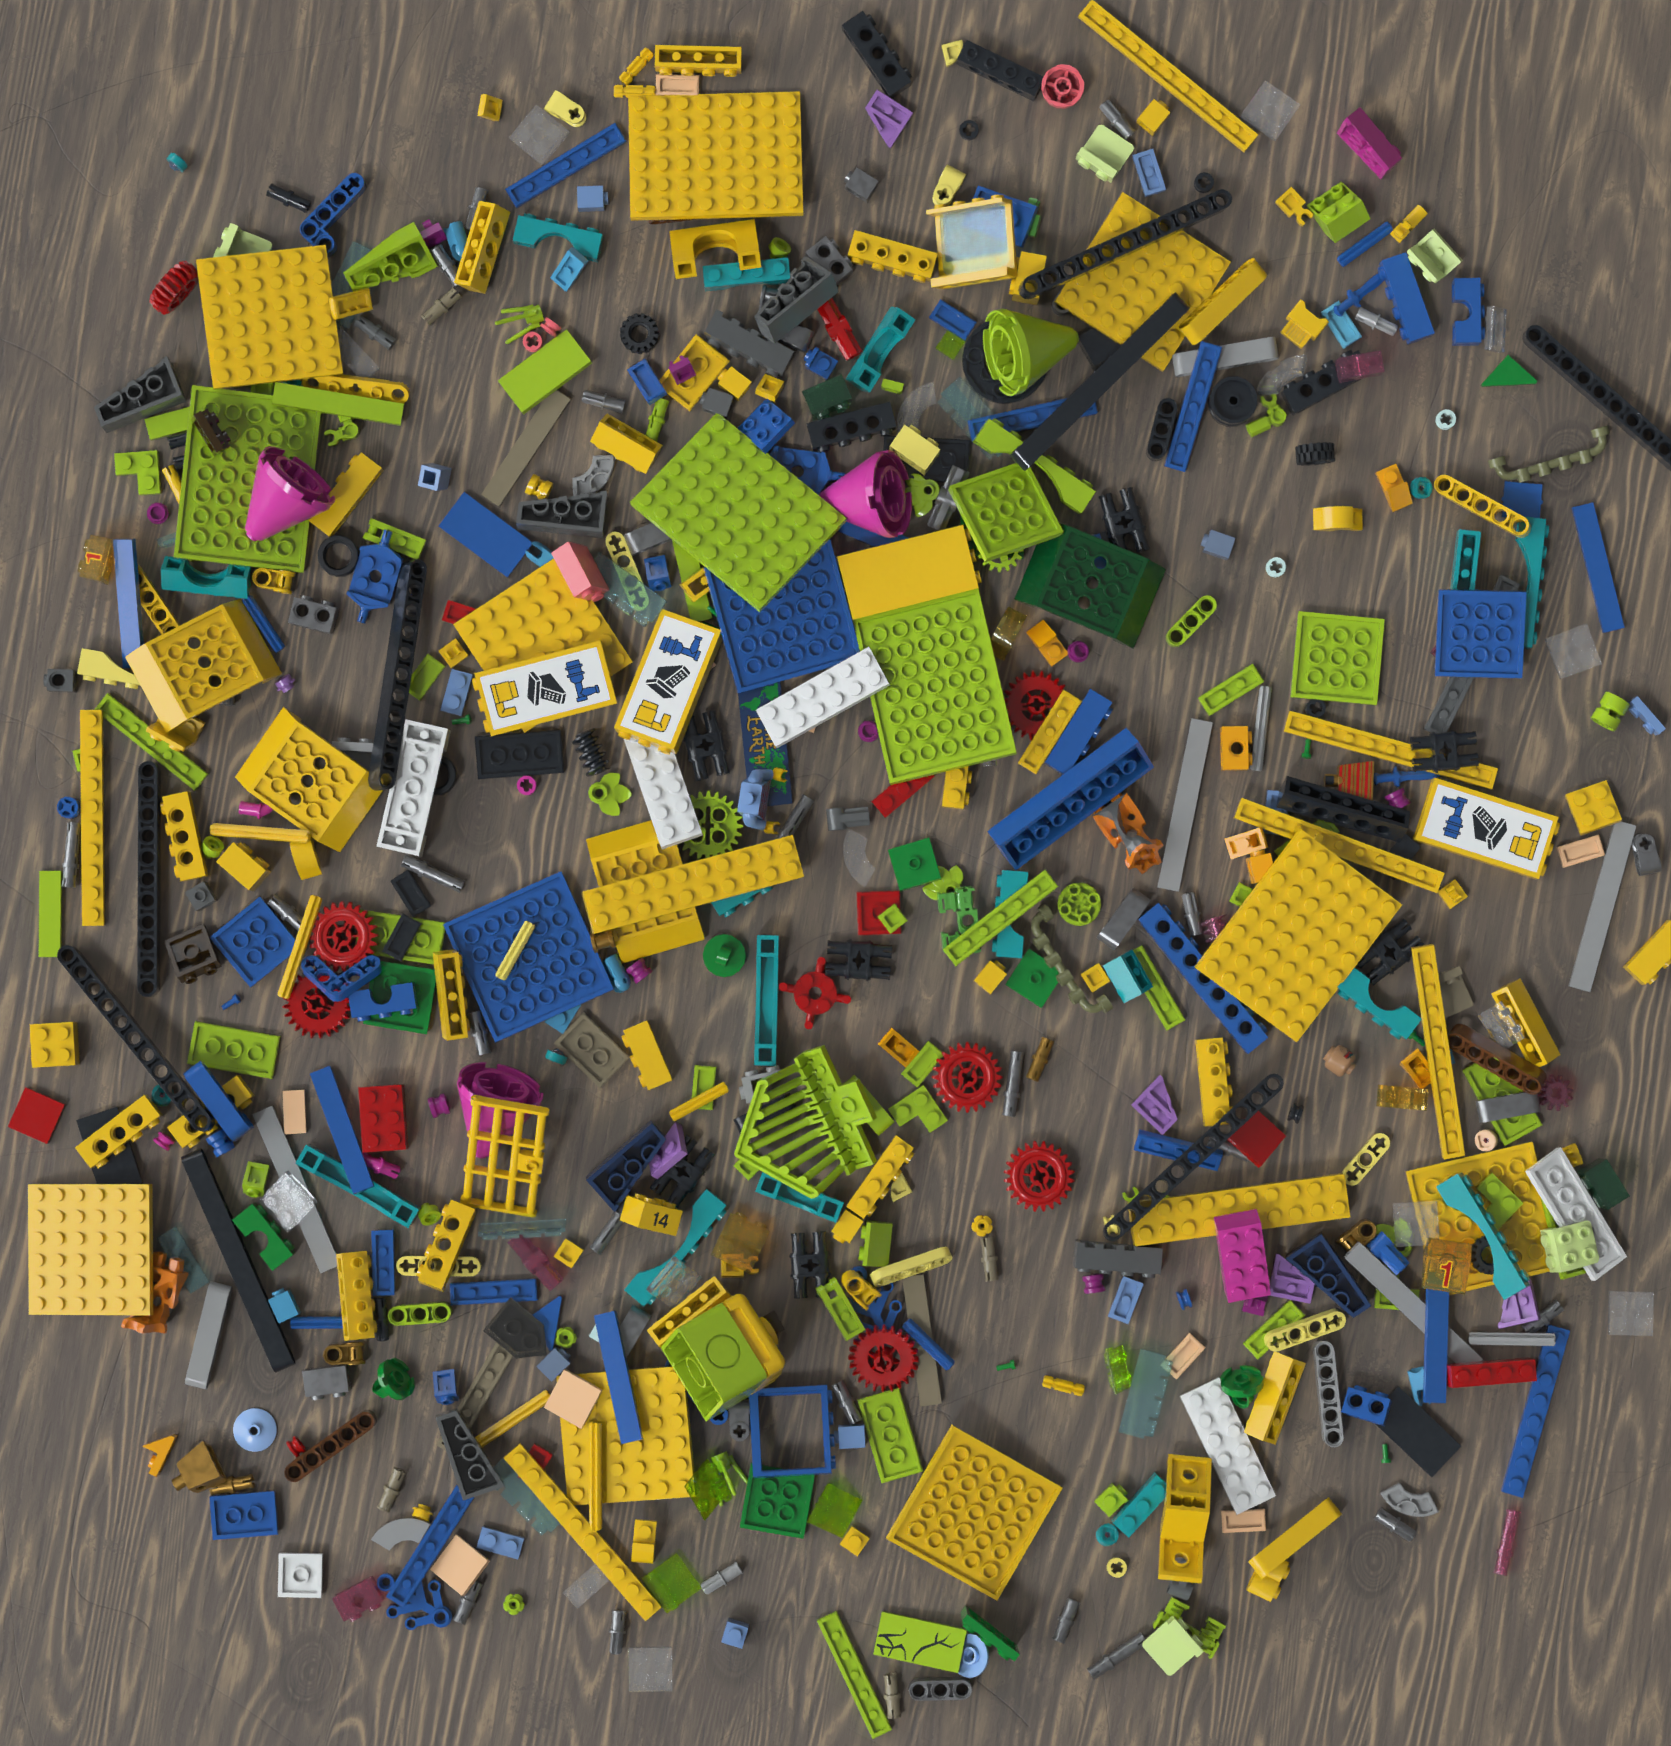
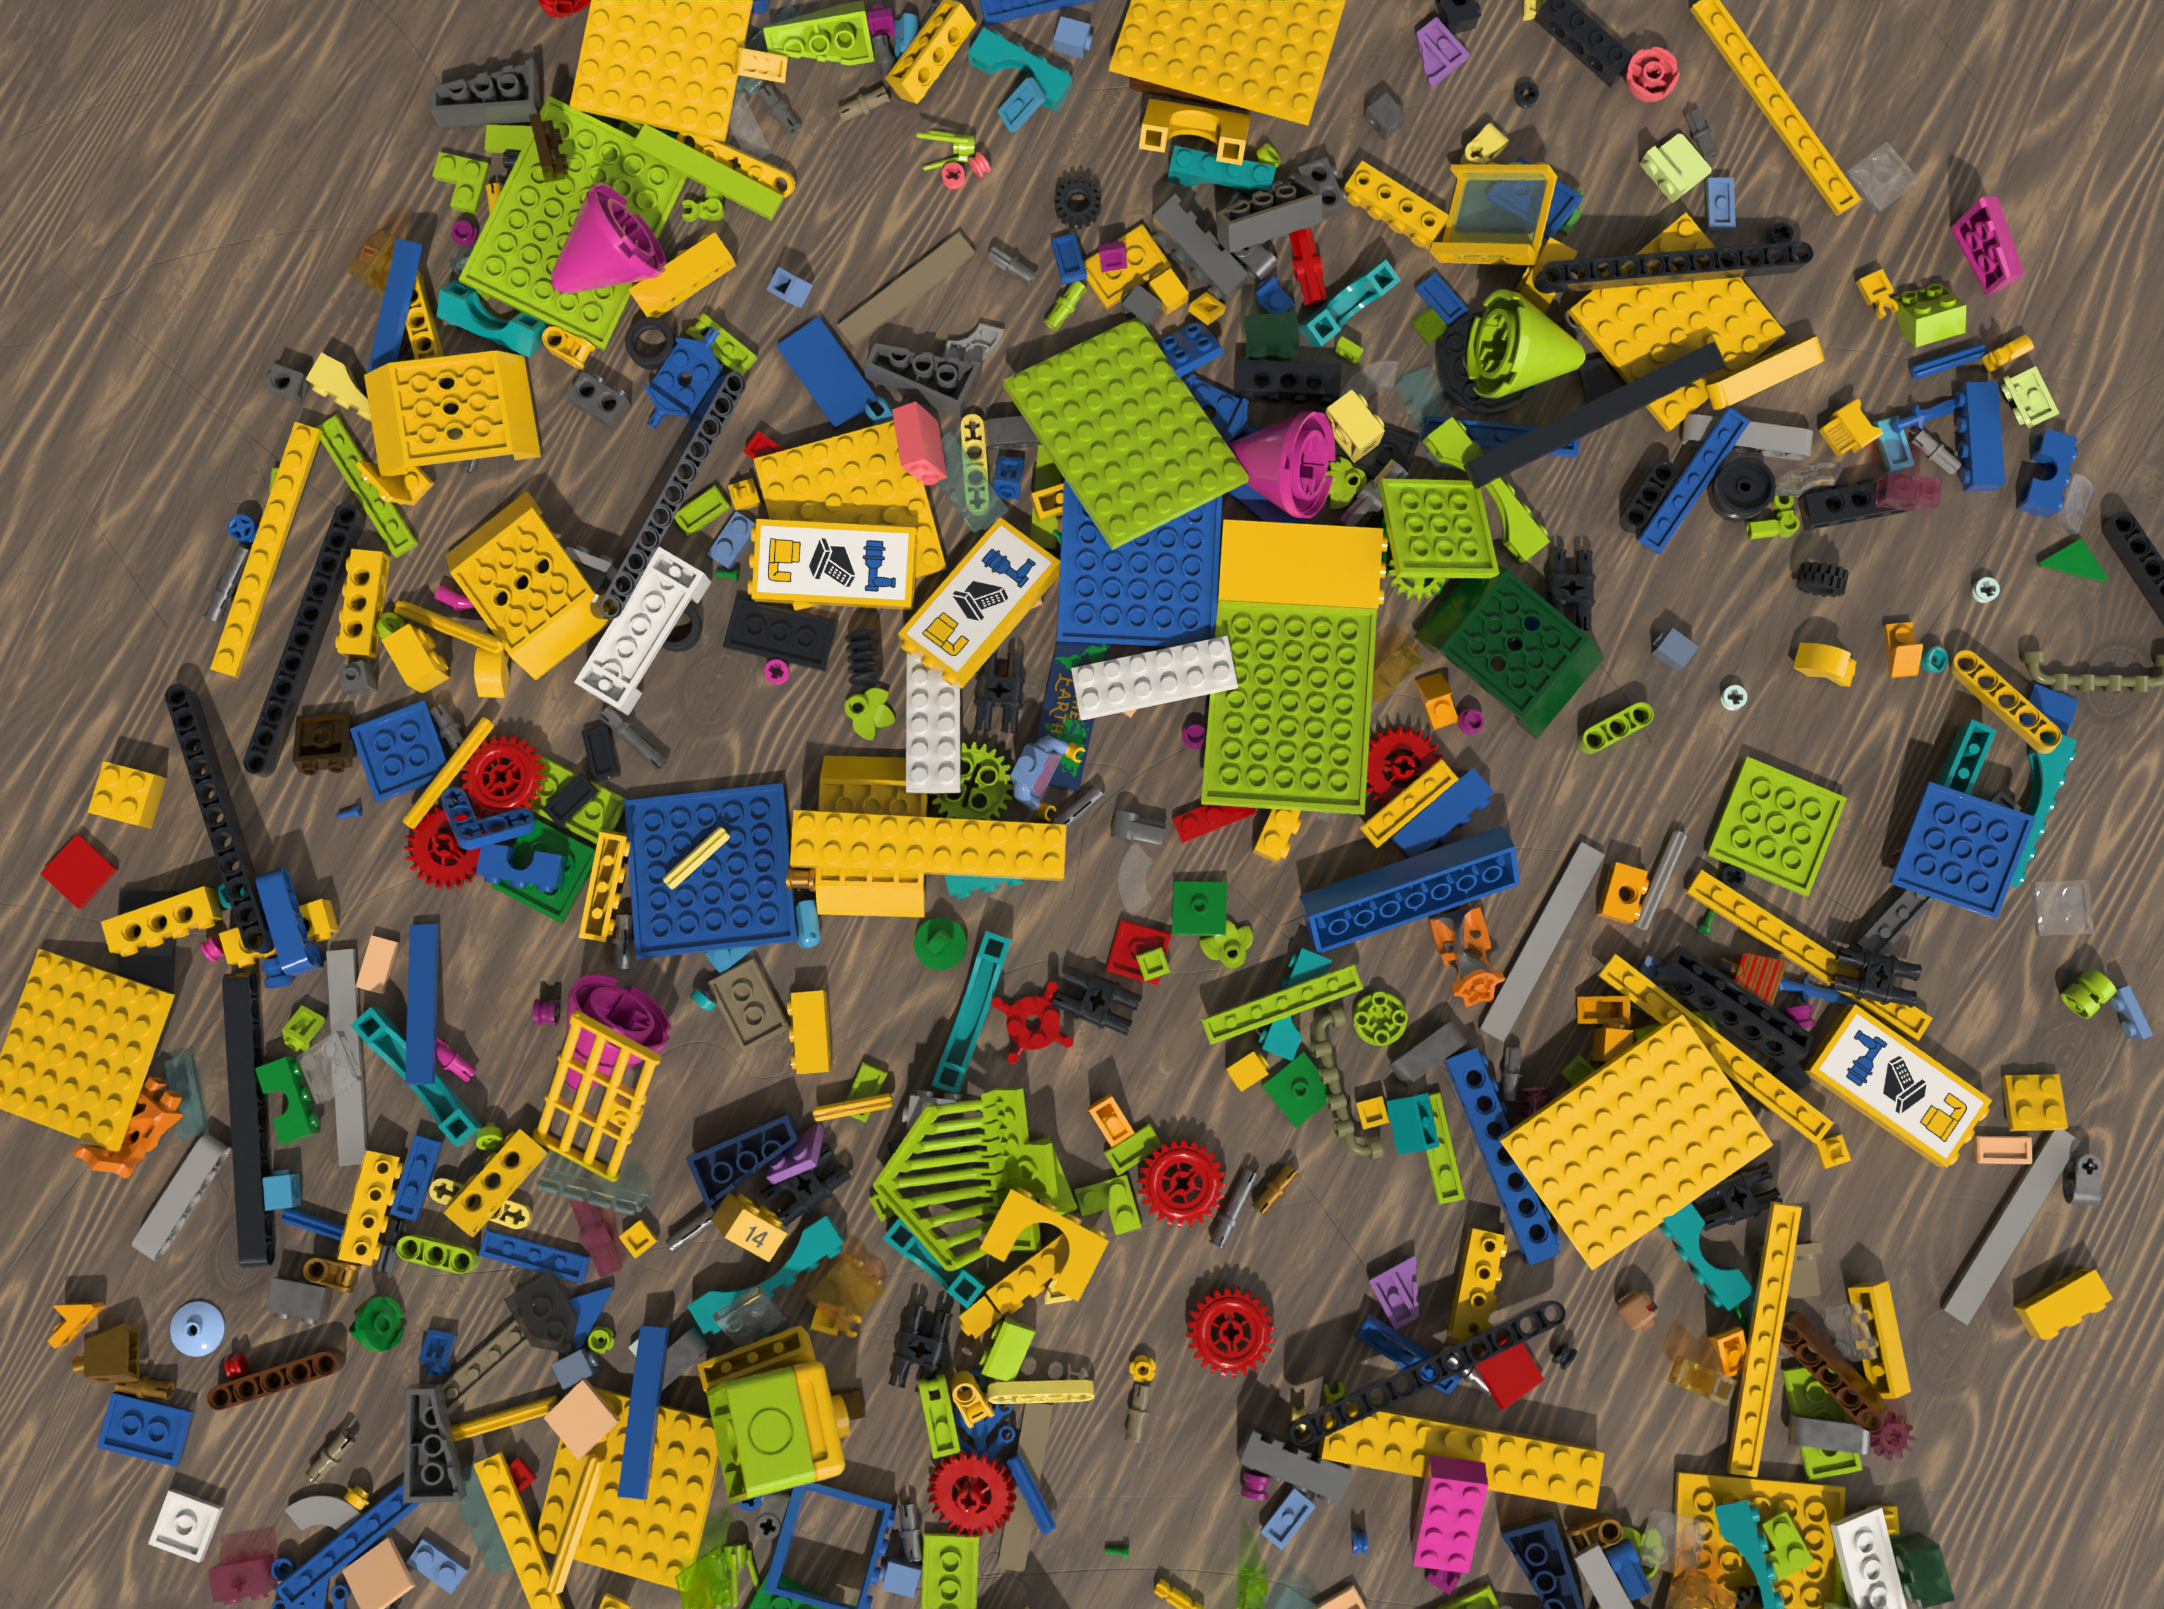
camera: 20 degrees right, 5 degrees down
(50, 913) = (180, 642): lime tile -> none
(234, 1049) = (333, 869): lime tile -> none
(263, 623) = (539, 393): blue axle -> none
(285, 683) = (540, 467): medium lavender plate -> none
(383, 1118) = (475, 1005): red brick -> none
(538, 487) = (904, 337): yellow wheel -> none
(544, 371) = (955, 212): lime tile -> none
(626, 443) = (1021, 318): yellow brick -> none
(639, 970) = (834, 929): magenta wheel -> none
(853, 1137) = (1084, 1245): none -> yellow arch
(964, 903) = (1243, 970): bright green piece -> none
(1153, 116) = (1744, 143): yellow brick -> none
(1230, 689) = (1637, 823): lime tile -> none
(1289, 1282) = (1495, 1563): medium lavender wing -> none
(1380, 1150) = (1645, 1423): light yellow beam -> none
(1486, 1140) = (1787, 1466): light nougat tile -> none
(1597, 567) = (2118, 819): blue tile -> none

